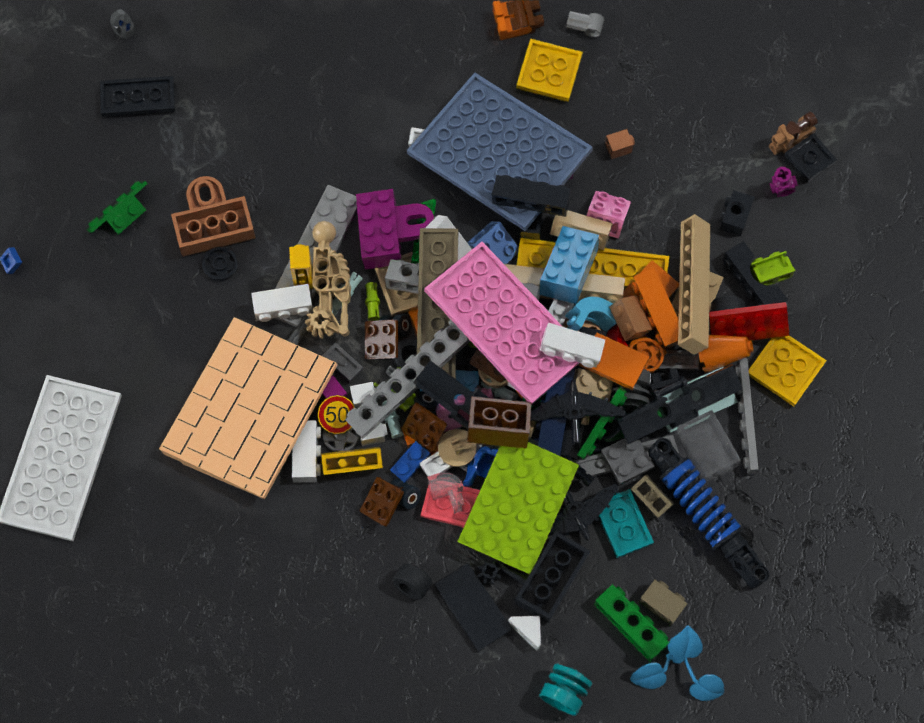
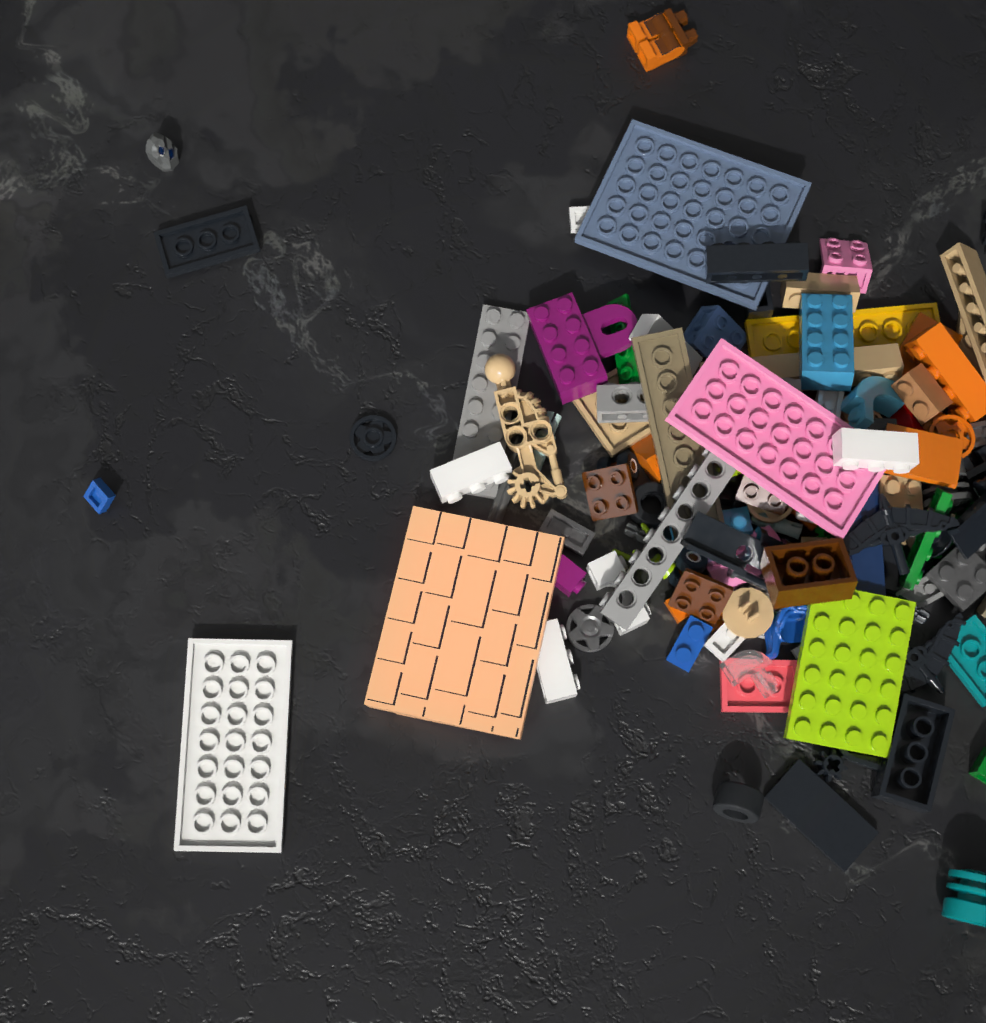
camera: 15 degrees left, 5 degrees up
(123, 212) = (229, 398): green bracket -> none
(211, 222) = (351, 385): nougat brick -> none
(301, 265) = (487, 420): yellow brick -> none
(333, 414) = (579, 604): piece -> none
(351, 460) = (616, 660): yellow brick -> none
(372, 301) = (582, 444): lime pin -> none
(386, 496) = (674, 700): reddish brown plate -> none
(393, 423) = (655, 601): light aqua axle -> none
(528, 628) = (902, 828): white slope -> none
(549, 70) = (720, 97): yellow plate -> none
(590, 23) = (753, 27): light grey piece -> none
(619, 143) = (833, 172): nougat brick -> none

